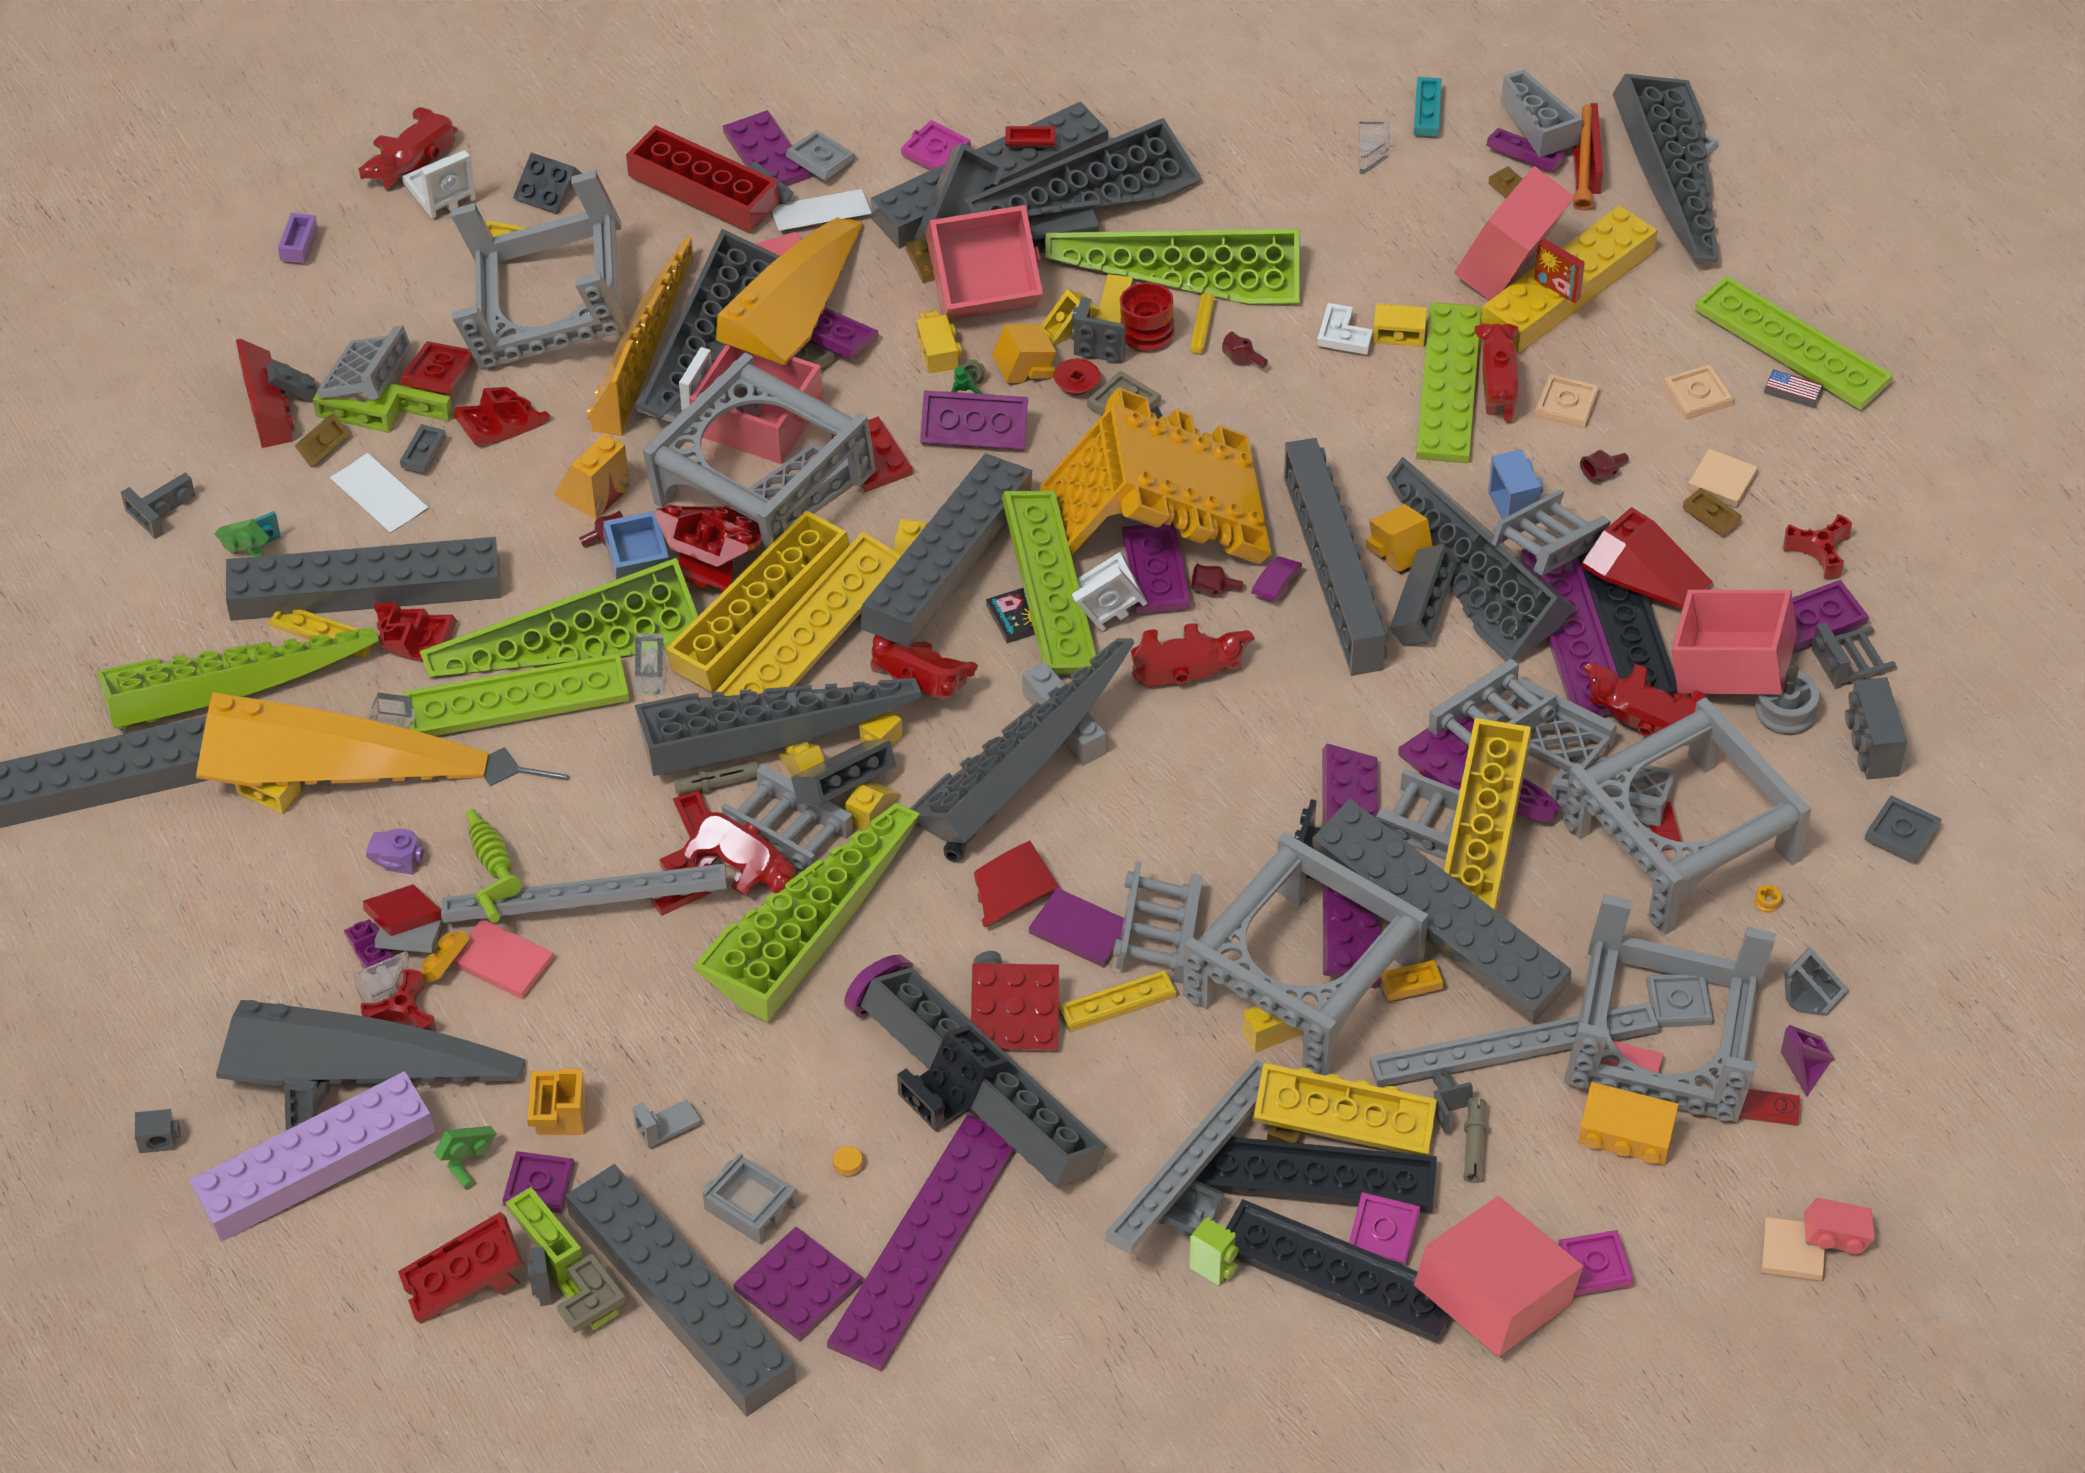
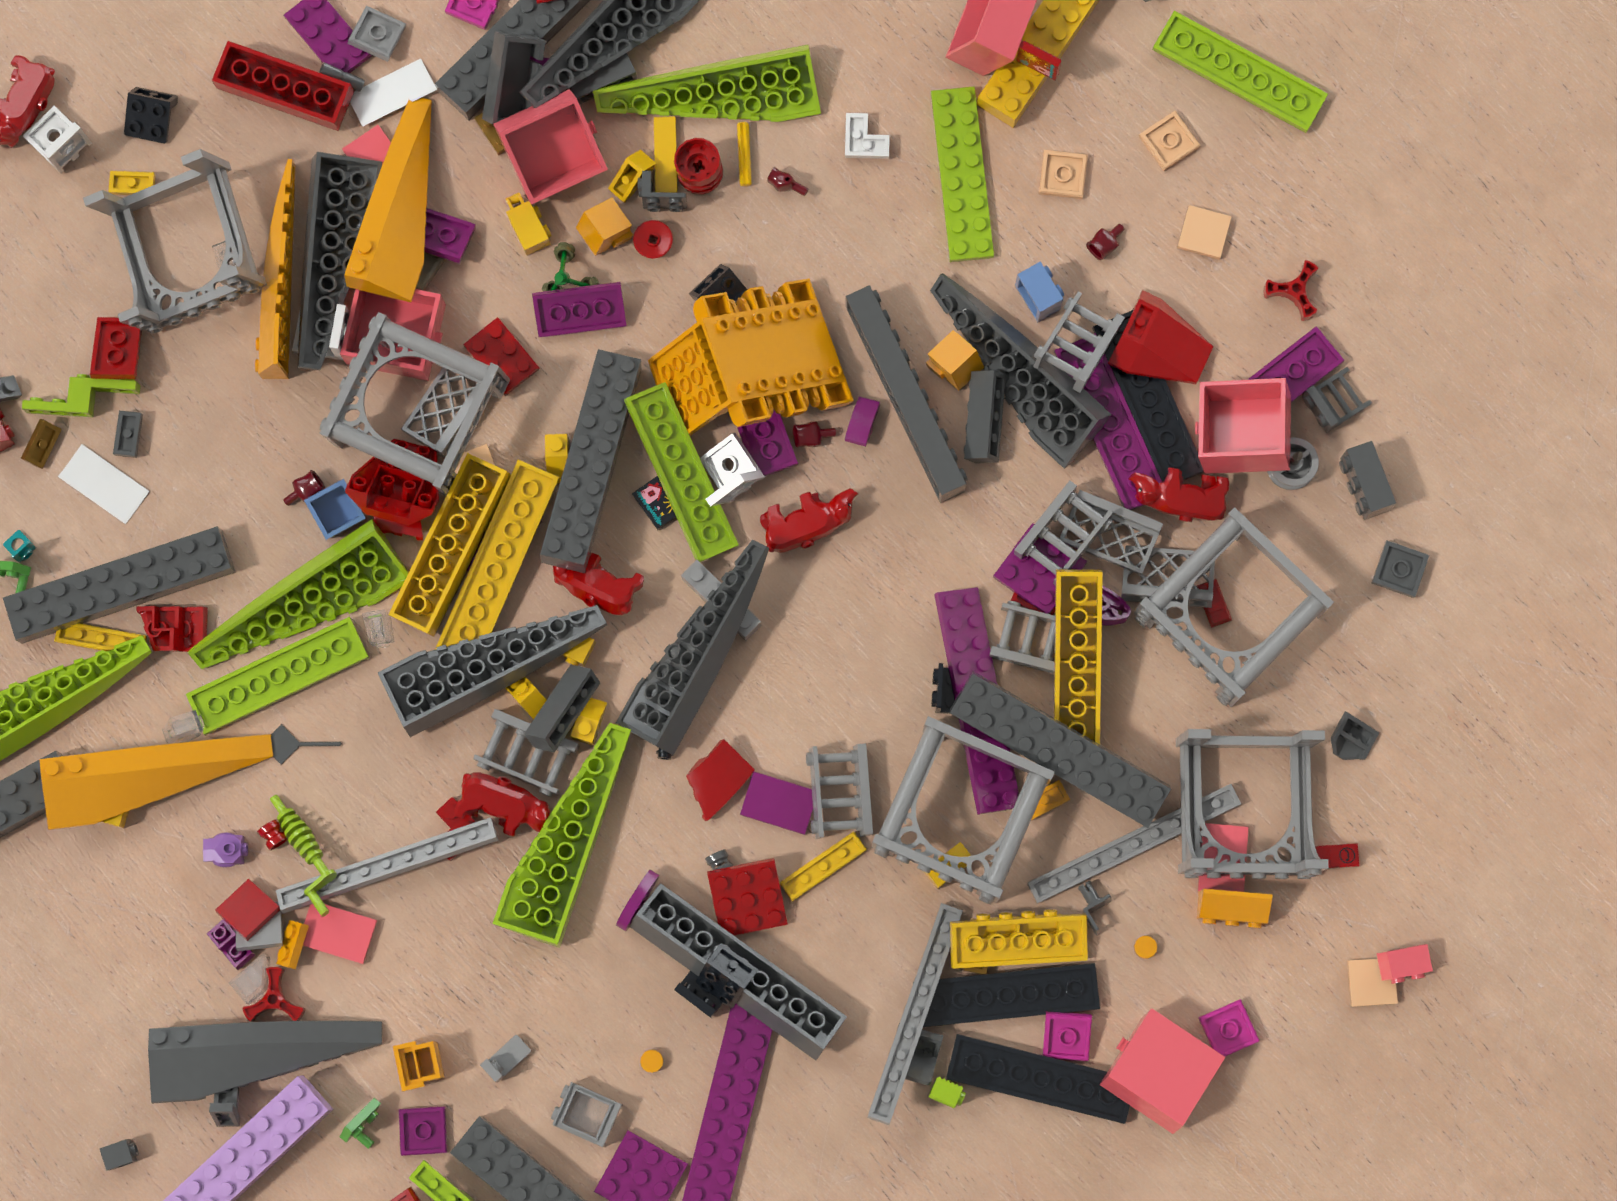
camera: 10 degrees left, 30 degrees up
(370, 364) = (70, 360): light grey fence -> none
(458, 846) = (272, 834): none -> red wheel
(499, 416) = (180, 384): red slope -> none
(596, 477) = (281, 441): light orange slope -> none
(691, 810) = (451, 761): red tile -> none
(716, 778) = (459, 723): dark tan pin -> none
(1099, 399) = (695, 245): dark tan plate -> none
(1399, 325) = (910, 123): yellow brick -> none
(1475, 1129) = (1120, 938): dark tan pin -> none
(1499, 367) = (1003, 160): red animal -> none
(1505, 1156) = (1145, 947): none -> light orange piece
(1679, 1000) = (1251, 771): light grey tile -> none
(1712, 511) = (1201, 273): pearl gold plate -> none
(1768, 906) = (1299, 662): light orange bush -> none
(1793, 388) = (1247, 121): tile -> none
(1806, 1056) = (1358, 806): magenta slope -> none

